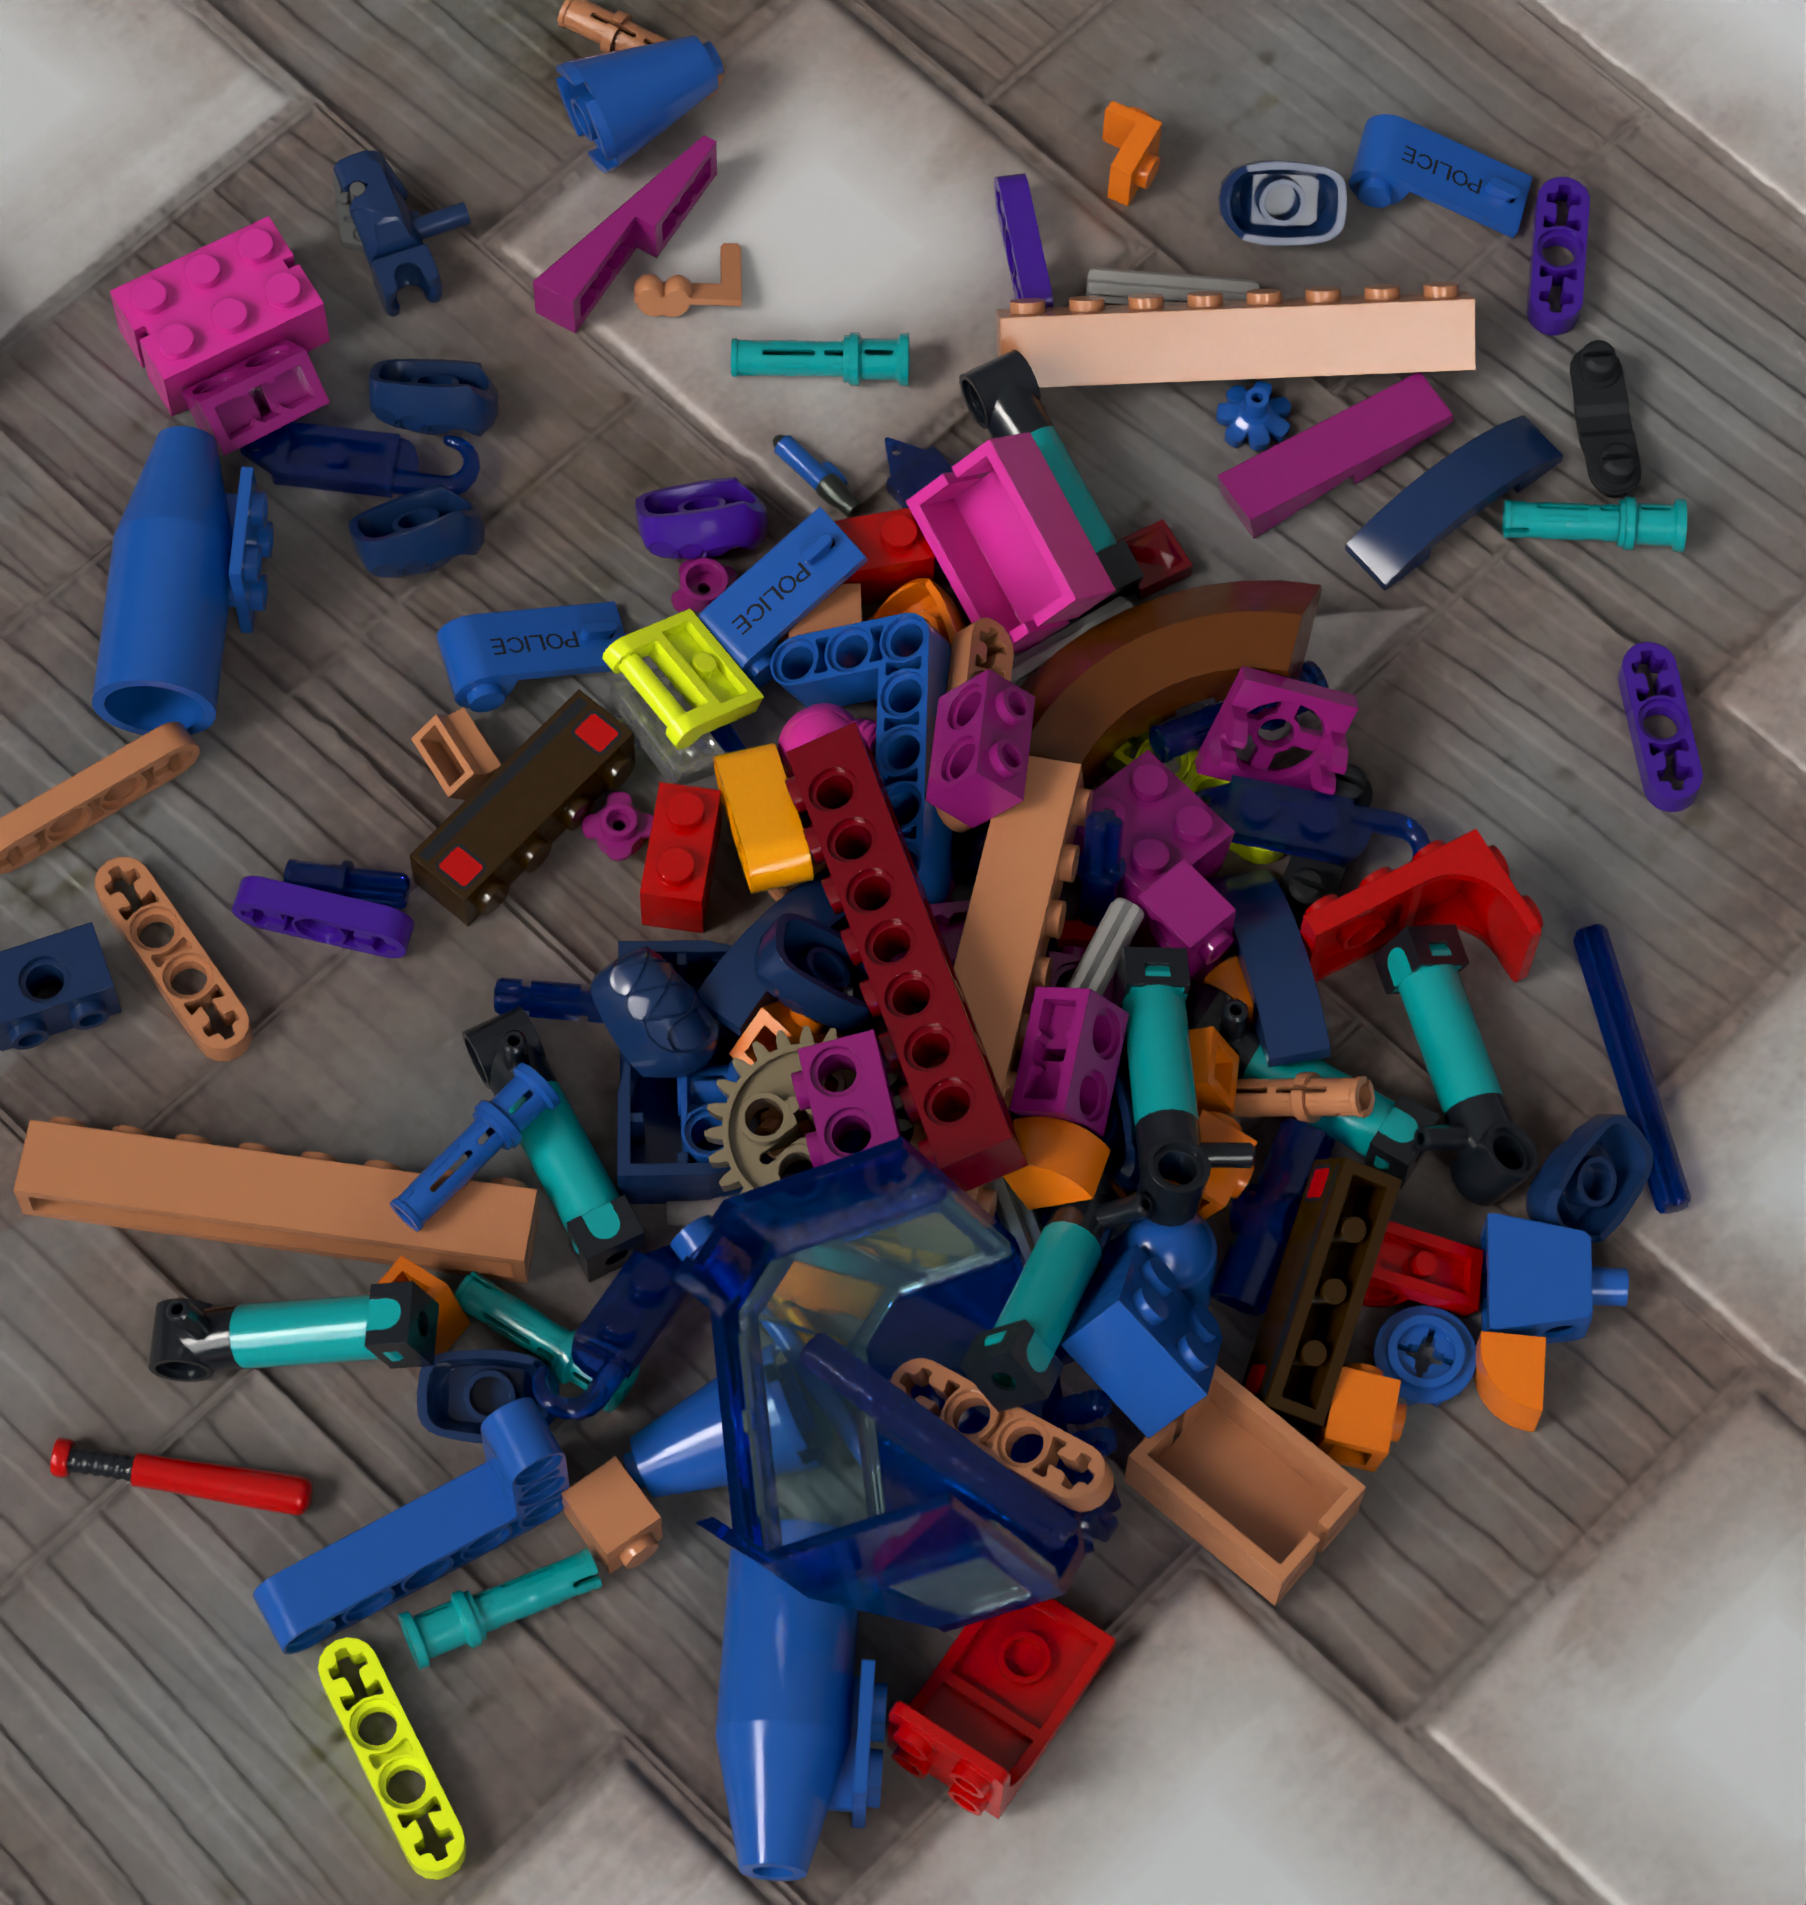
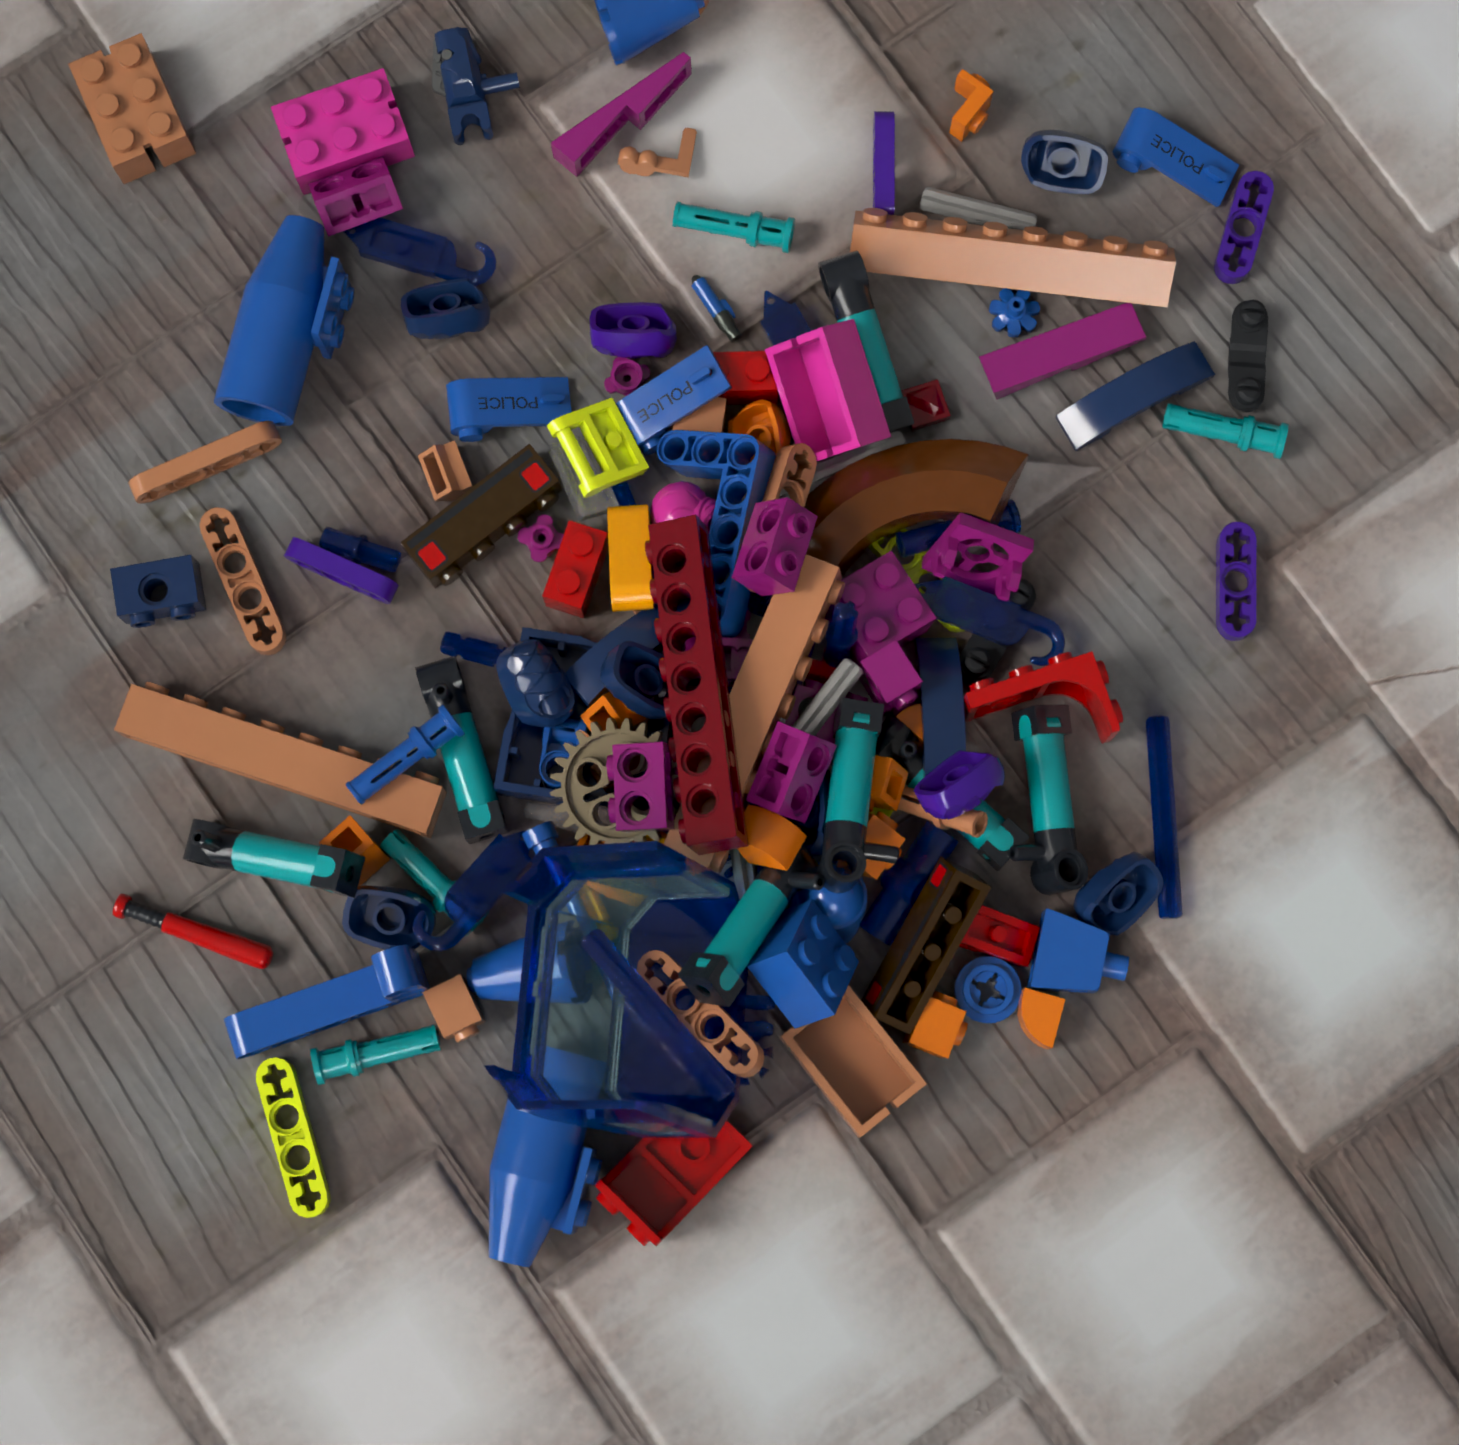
camera: 15 degrees right, 15 degrees up
(433, 395) = (473, 211): dark blue piece -> none
(1324, 1041) = (959, 784): none -> dark purple piece

